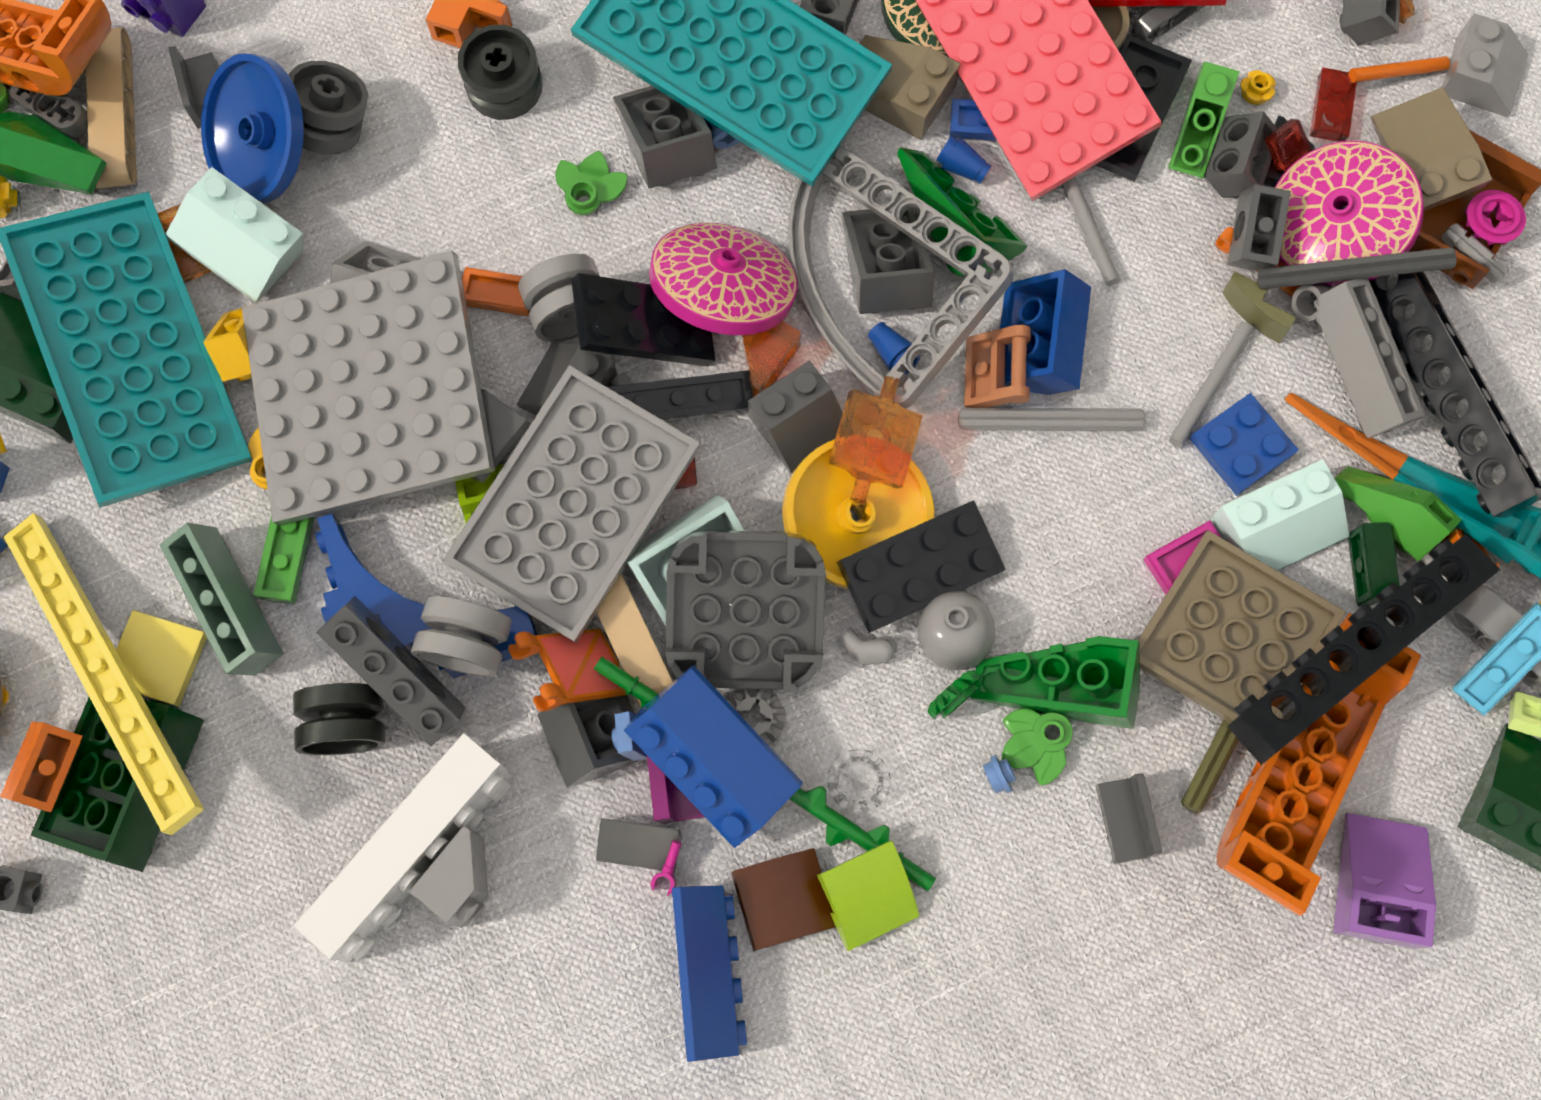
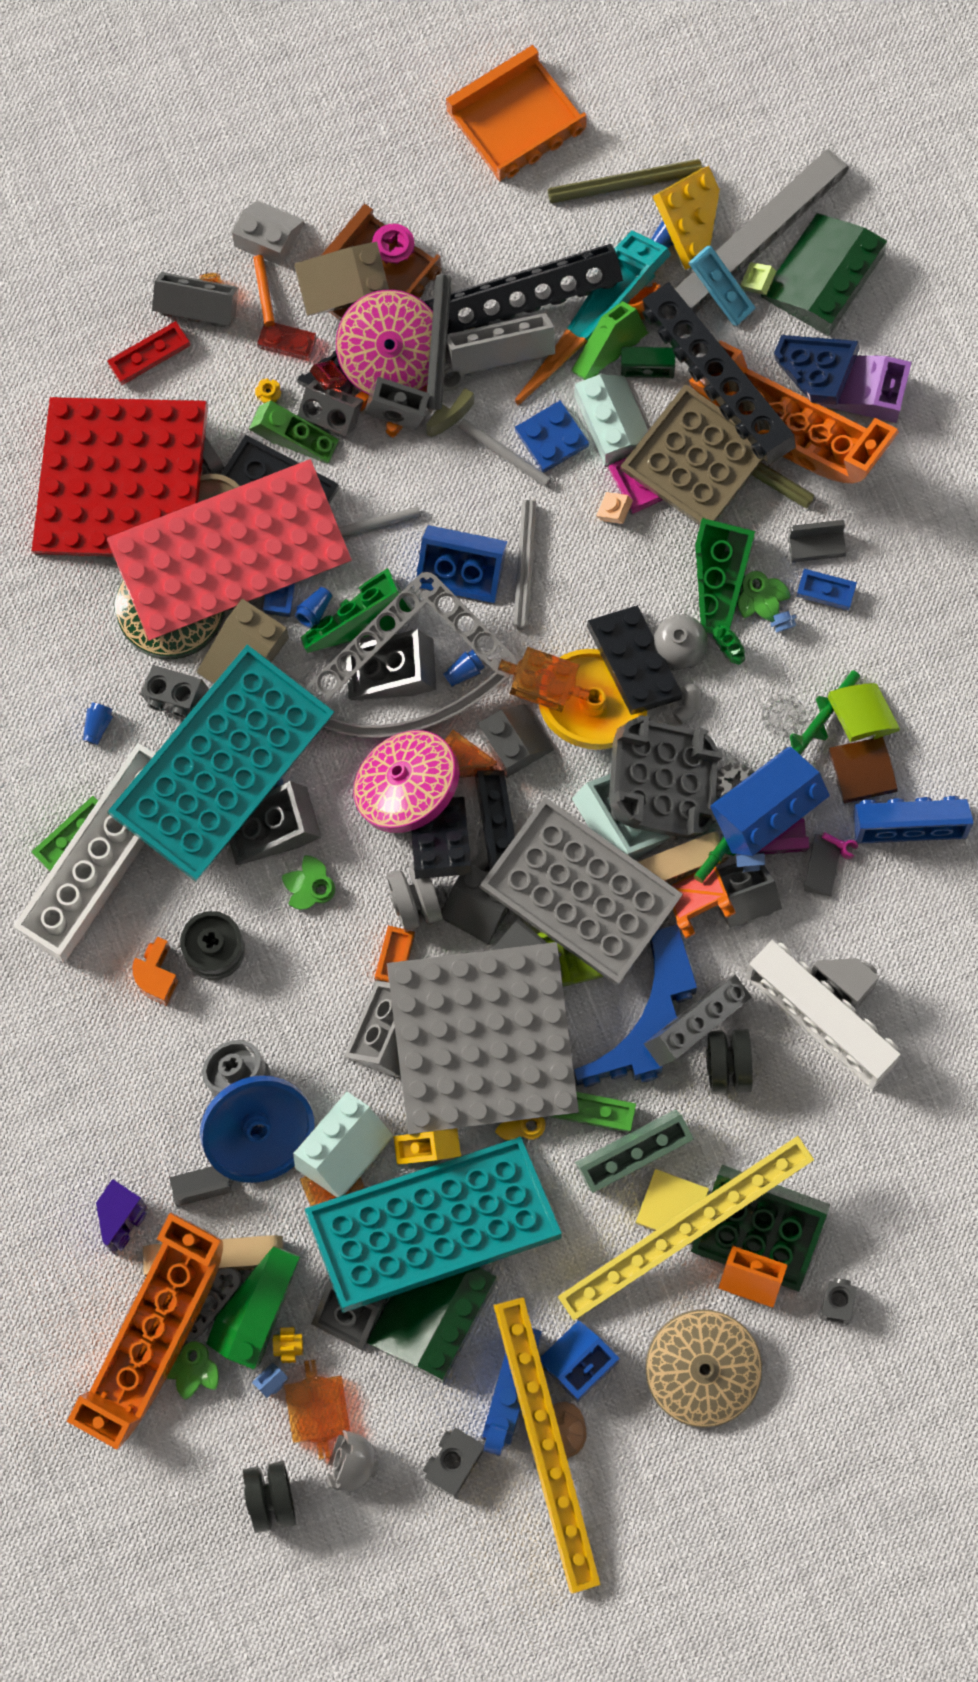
camera: 85 degrees left, 0 degrees up
(461, 636) = (683, 964): light grey wheel -> none
(986, 367) = (488, 604): nougat plate -> none
(1055, 835) = (826, 589): none -> blue plate
(1146, 530) = (614, 508): none -> light nougat plate
(1405, 805) = (817, 365): none -> dark blue plate
(1475, 250) = (419, 261): light grey axle -> none

